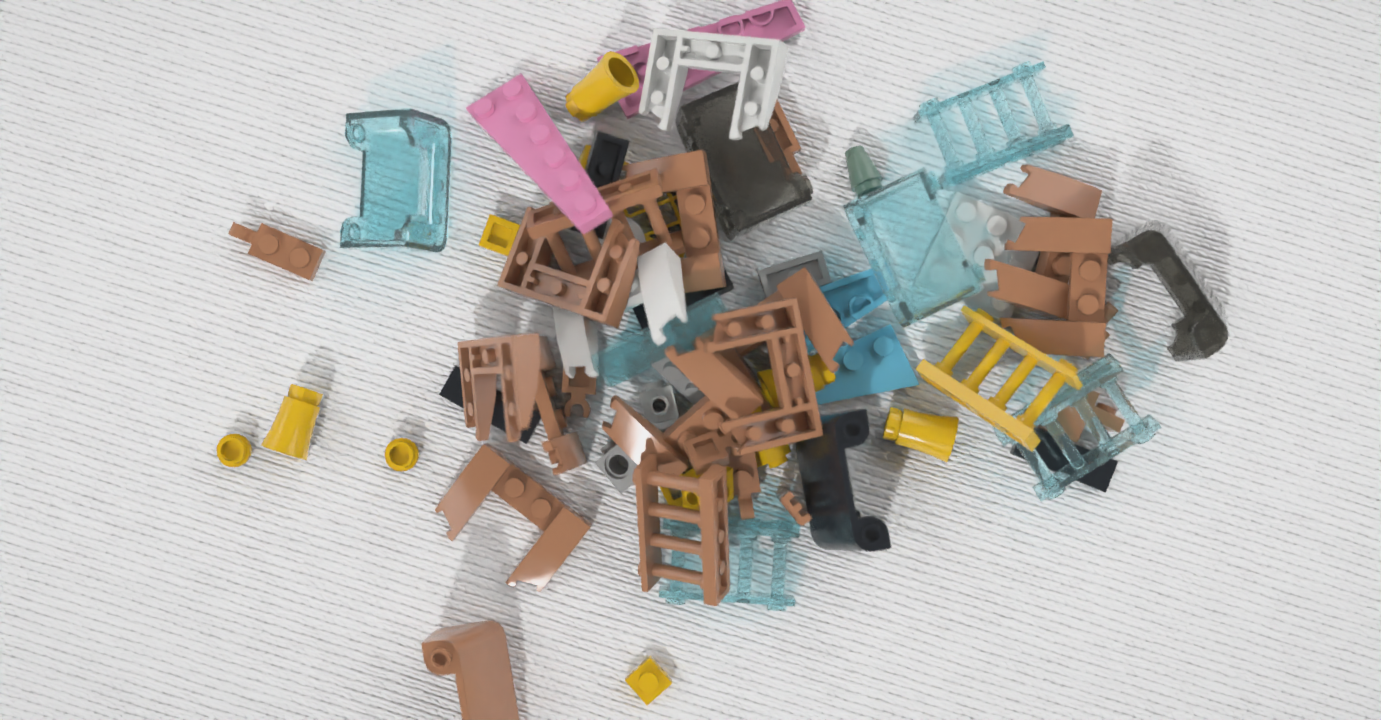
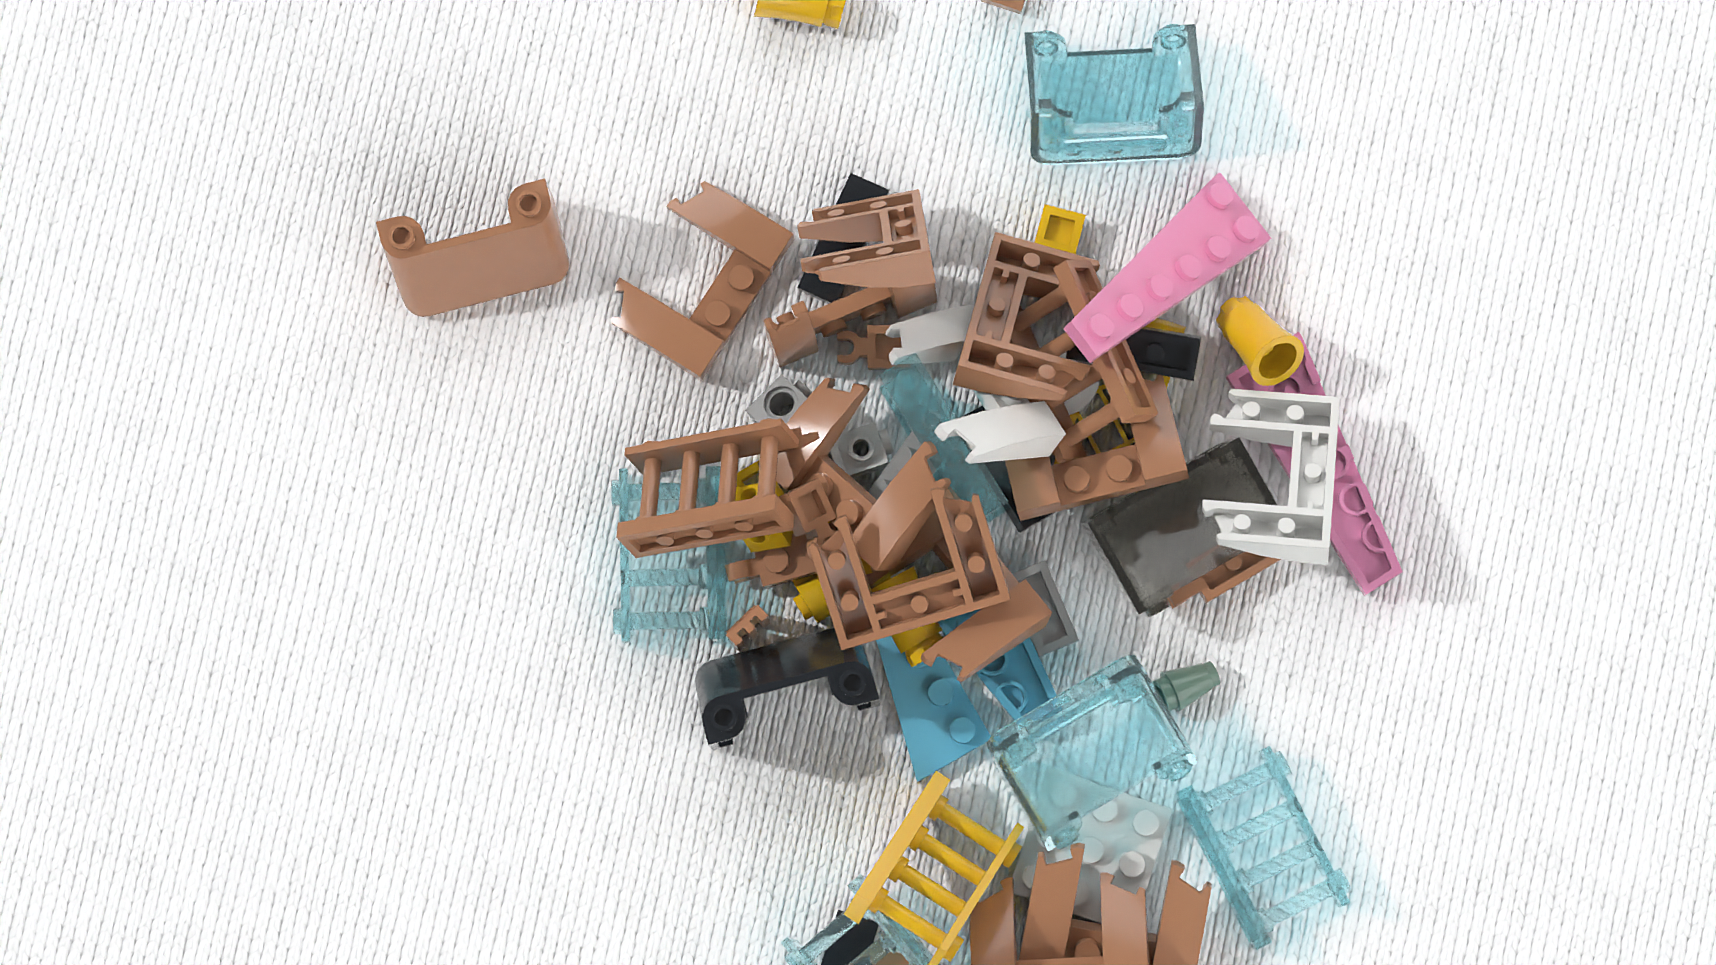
camera: 90 degrees right, 5 degrees down
(401, 454) = (770, 133): yellow plate -> none
(648, 680) = (510, 469): yellow plate -> none
(922, 432) = (856, 788): yellow plant -> none

